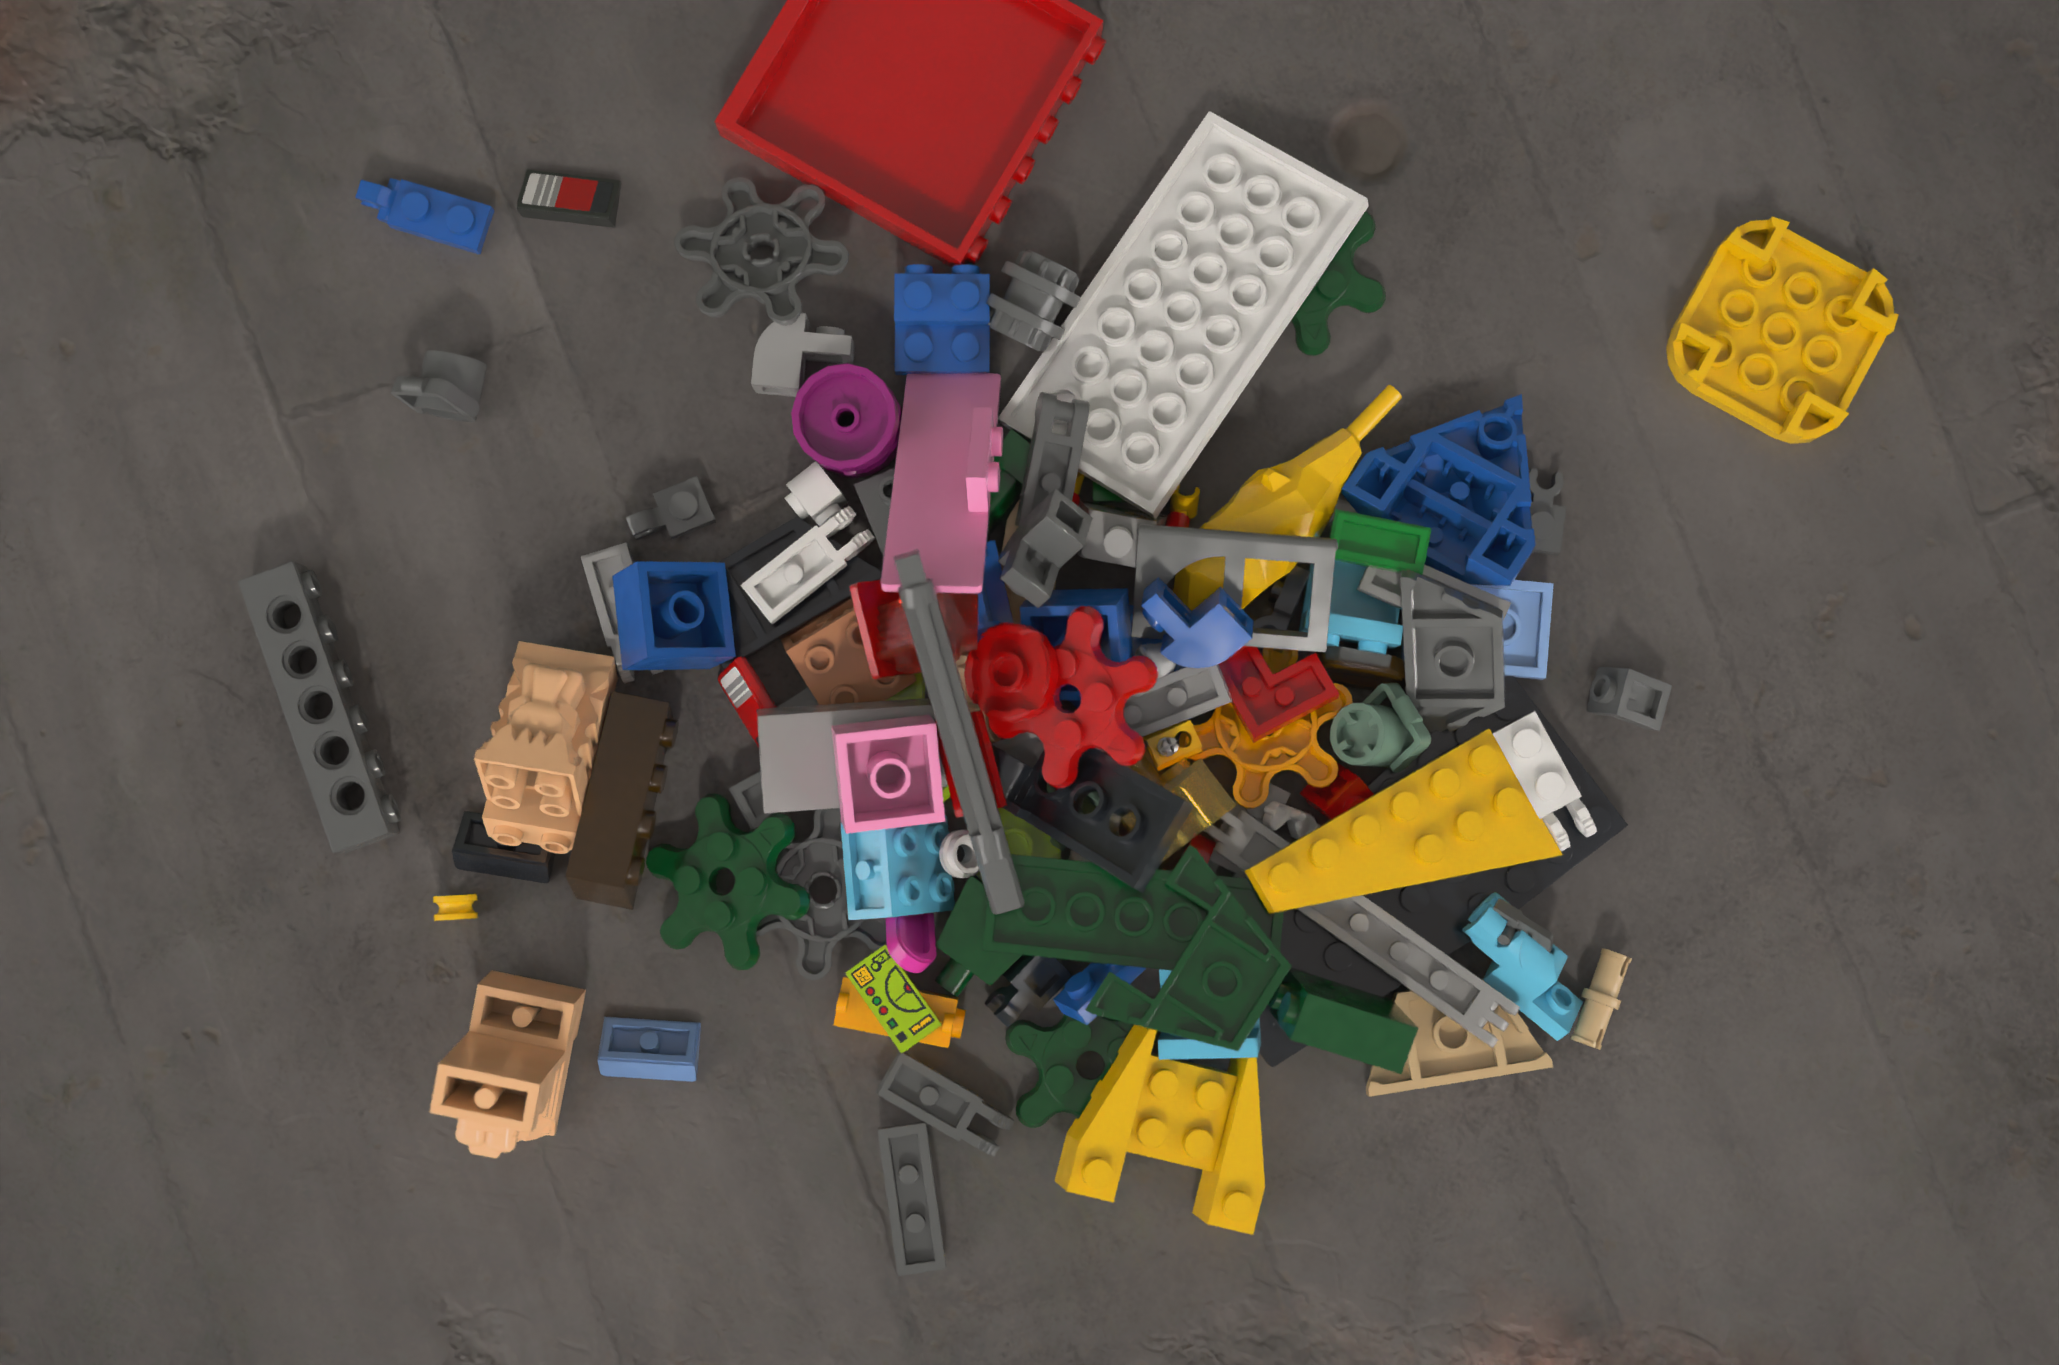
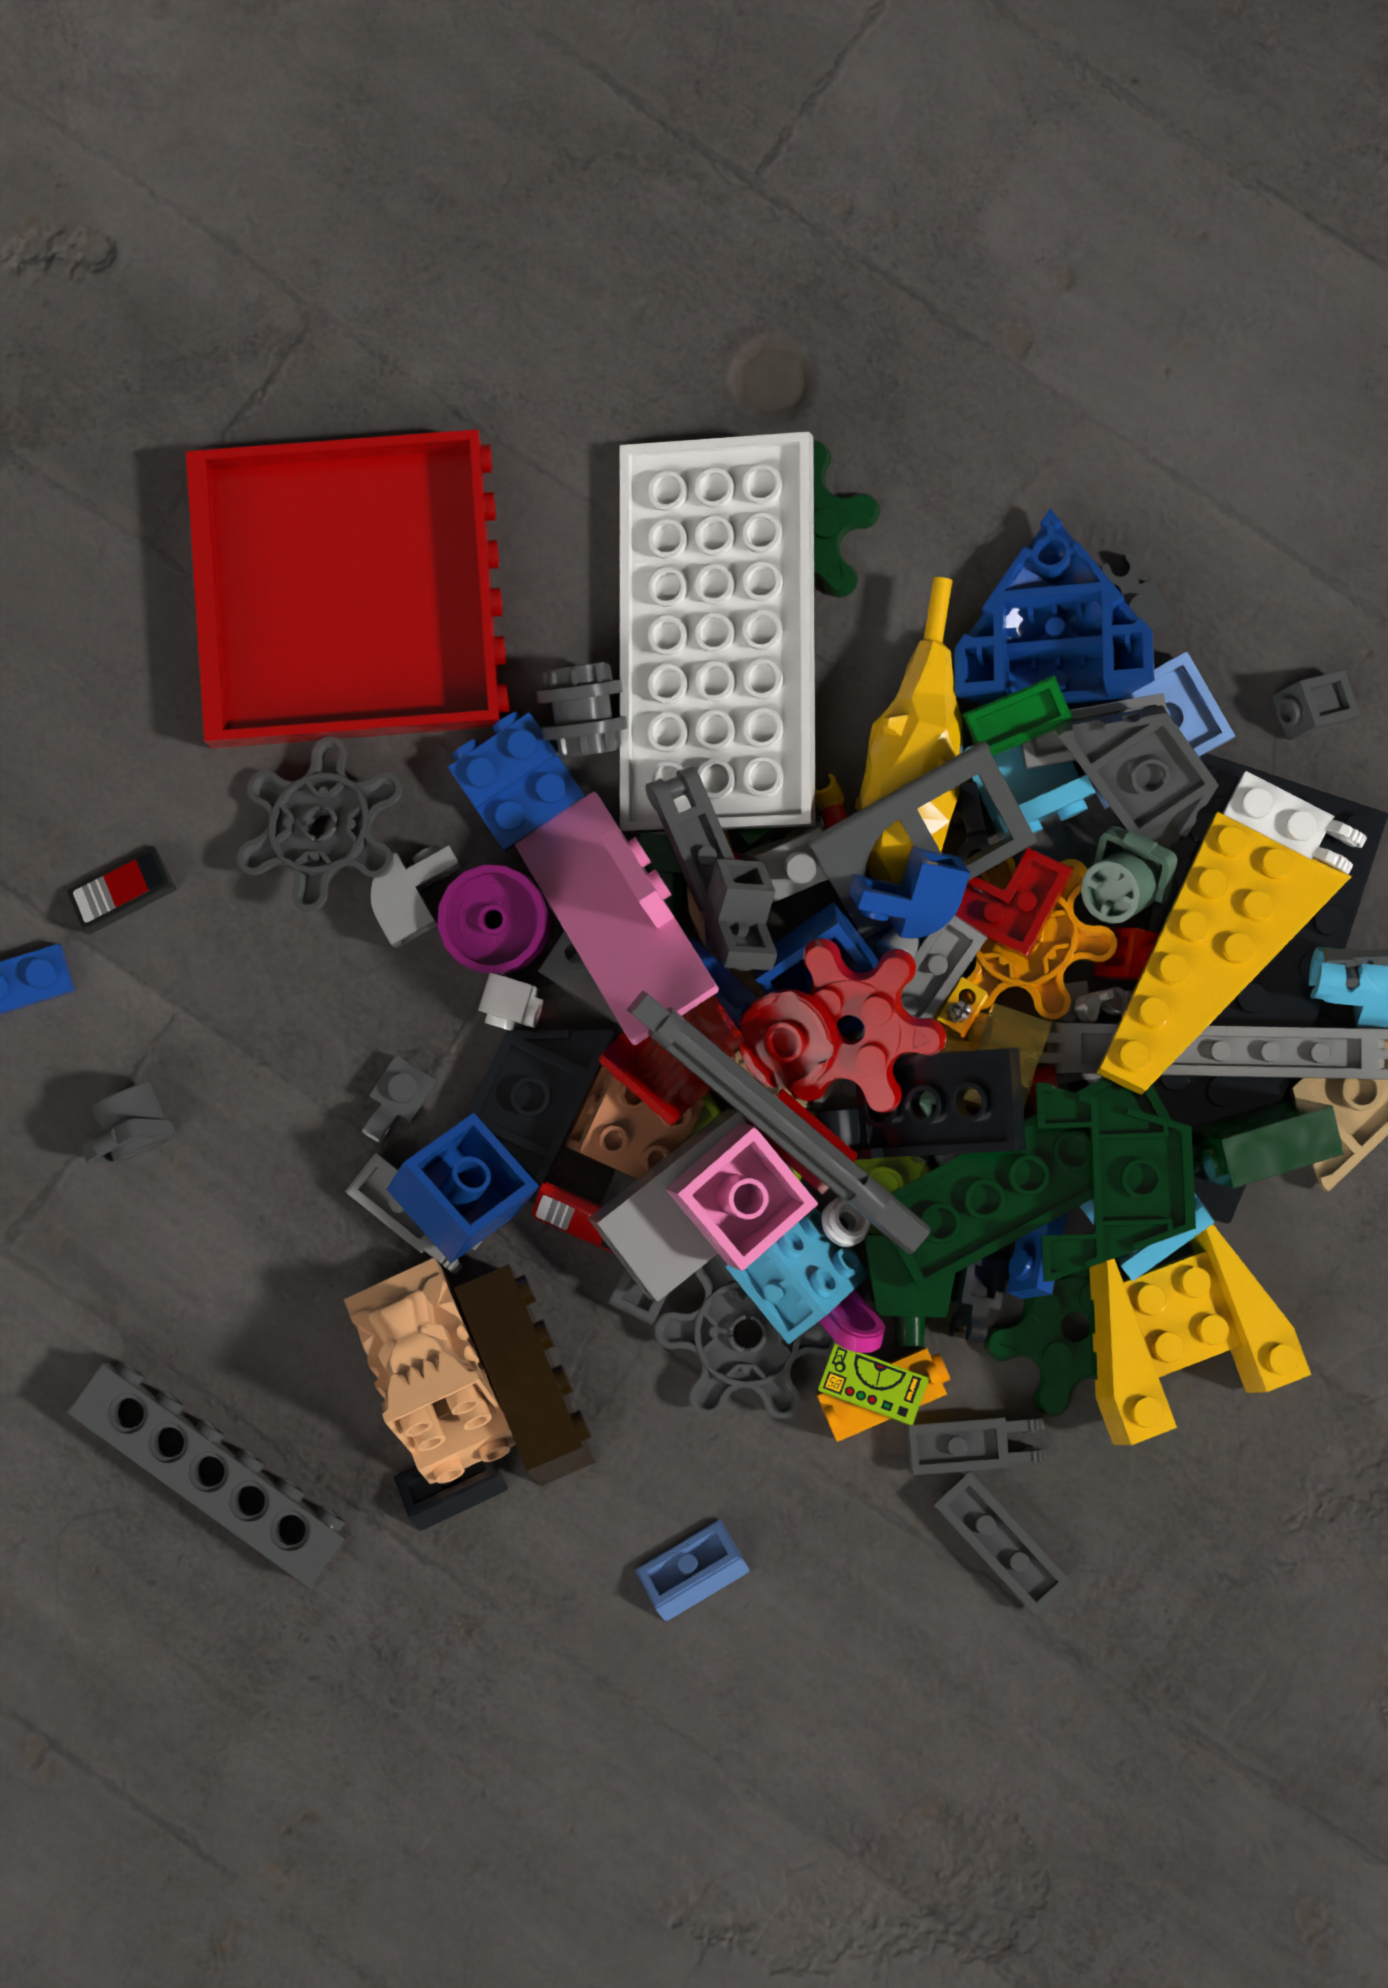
camera: 25 degrees left, 0 degrees up
(455, 907) = (444, 1563): yellow bush -> none
(512, 1063) = (586, 1660): light nougat brick -> none
(757, 885) = (693, 1375): dark green plate -> none
(804, 567) = (543, 1071): white hinge -> none
(1362, 668) = (1075, 833): dark brown tile -> none
(1780, 332) = (1231, 306): yellow tile -> none

